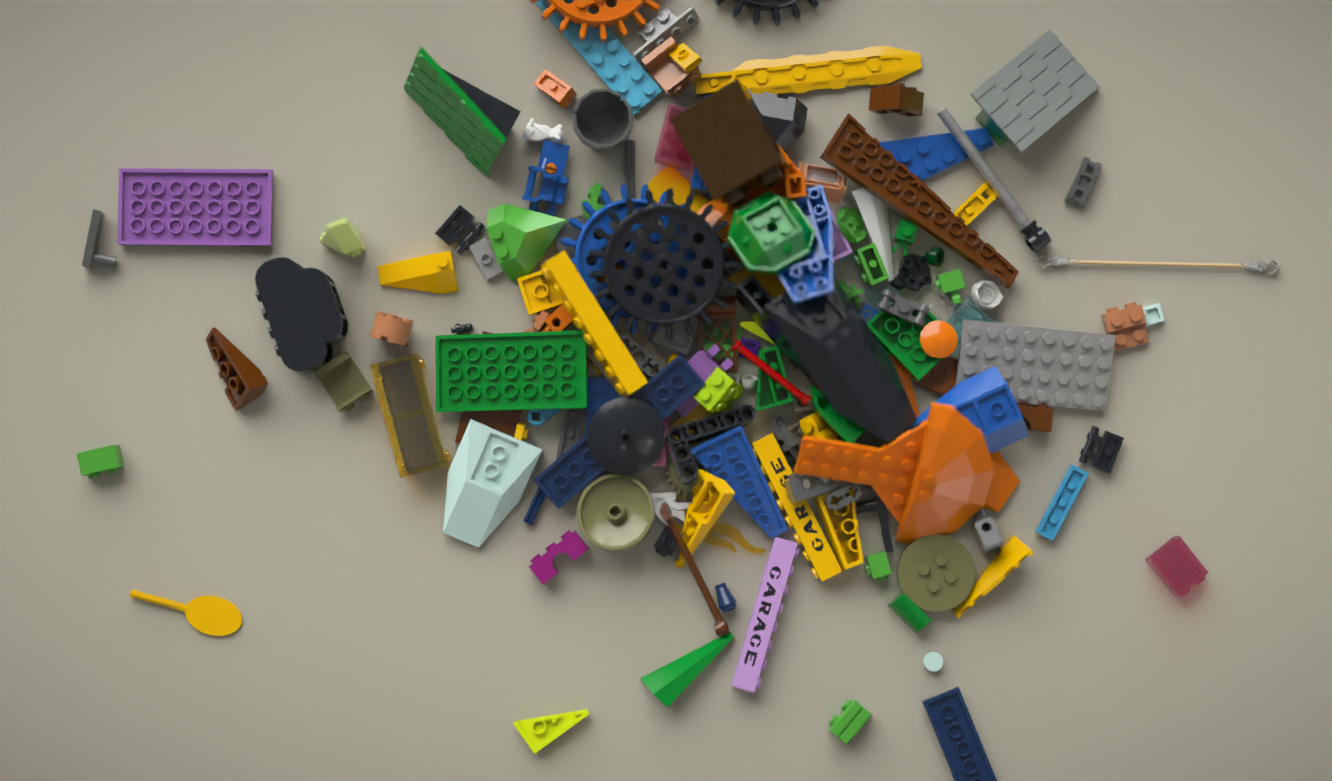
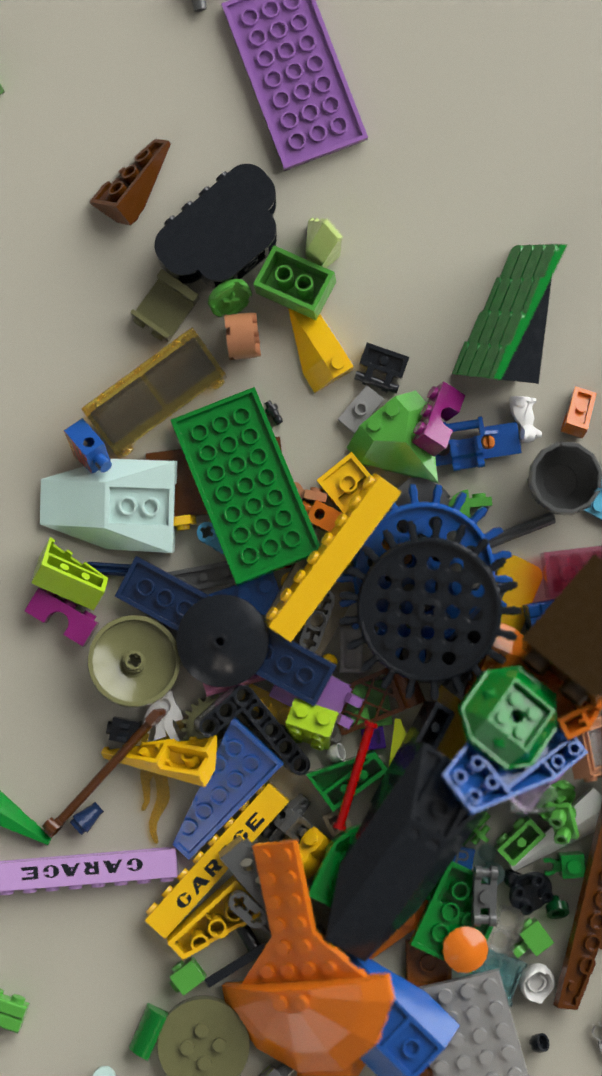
camera: 70 degrees right, 0 degrees up
(357, 327) = (229, 297): none -> bright green tile
(365, 271) = (295, 282): none -> bright green brick
(432, 484) = (94, 454): none -> blue torso
(525, 209) = (431, 432): none -> magenta arch
(529, 540) = (68, 577): none -> lime wedge
(842, 240) = (533, 800): none -> clear piece
(869, 225) = (563, 822): none -> bright green hips
(1033, 310) = (540, 1047): none -> black hinge

